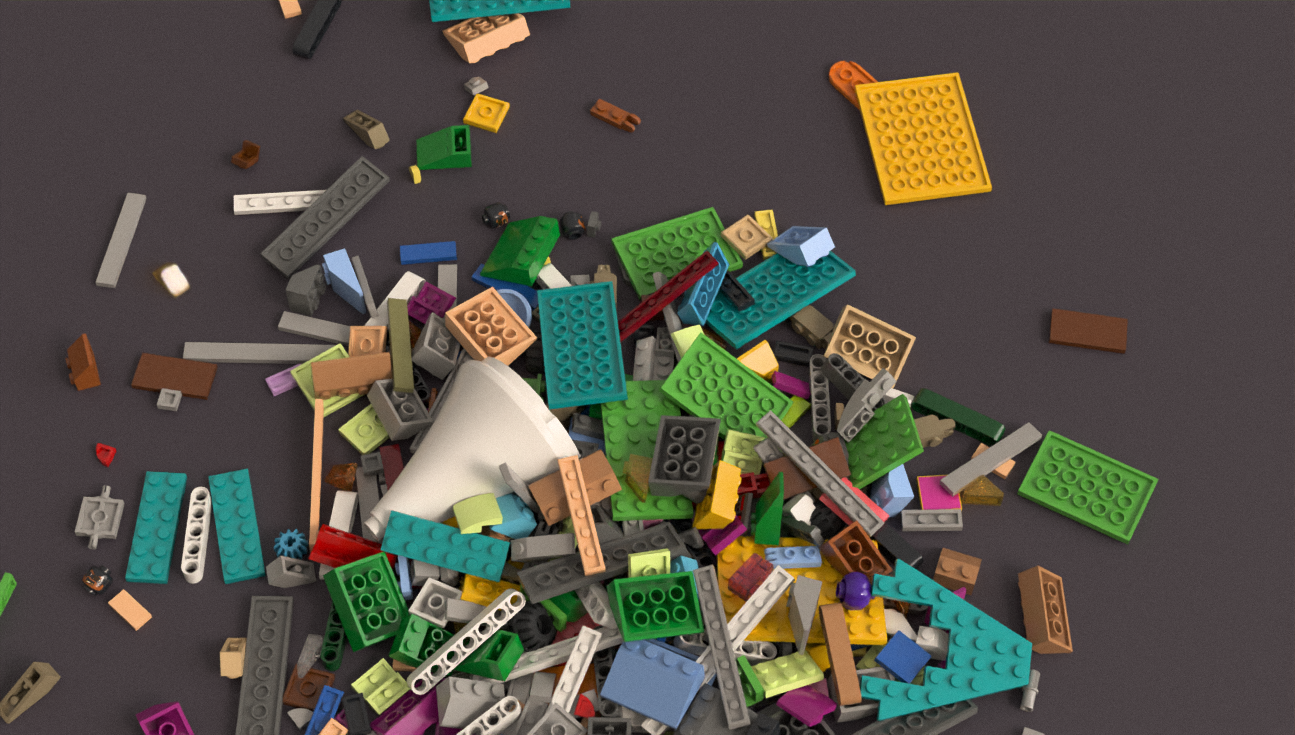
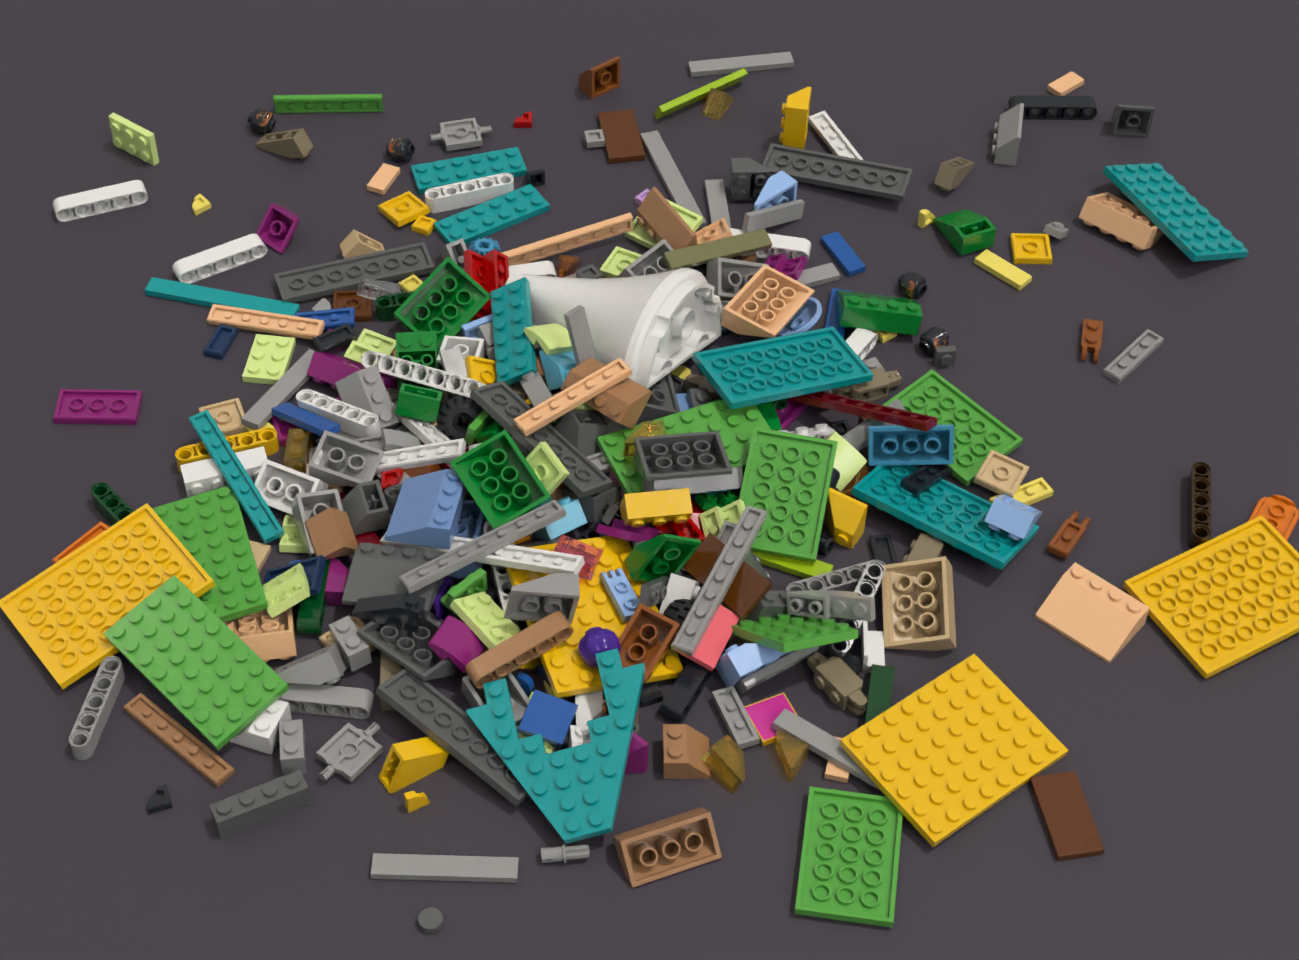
camera: 70 degrees right, 10 degrees down
(152, 287) = (699, 93): none -> lime tile
(187, 602) = (403, 209): none -> yellow tile
(201, 470) = (535, 177): none -> black slope
(218, 591) = (423, 225): none -> yellow tile
(247, 156) = (872, 108): reddish brown bracket -> none
(253, 219) = (796, 119): none -> yellow slope
(303, 626) = (410, 283): none -> light yellow tile
(345, 68) = (1008, 136): none -> light grey slope
(503, 143) = (1002, 269): none -> light yellow tile
(644, 95) = (1132, 356): none -> light grey tile
(791, 385) = (836, 551): magenta tile -> none
(823, 217) = (1068, 536): none -> dark orange hinge
(826, 121) = (1199, 504): none -> dark brown beam
(908, 235) = (1092, 612): none -> light nougat slope
(979, 540) = (726, 762): none -> clear yellow slope
(1012, 379) = (953, 749): none -> yellow plate

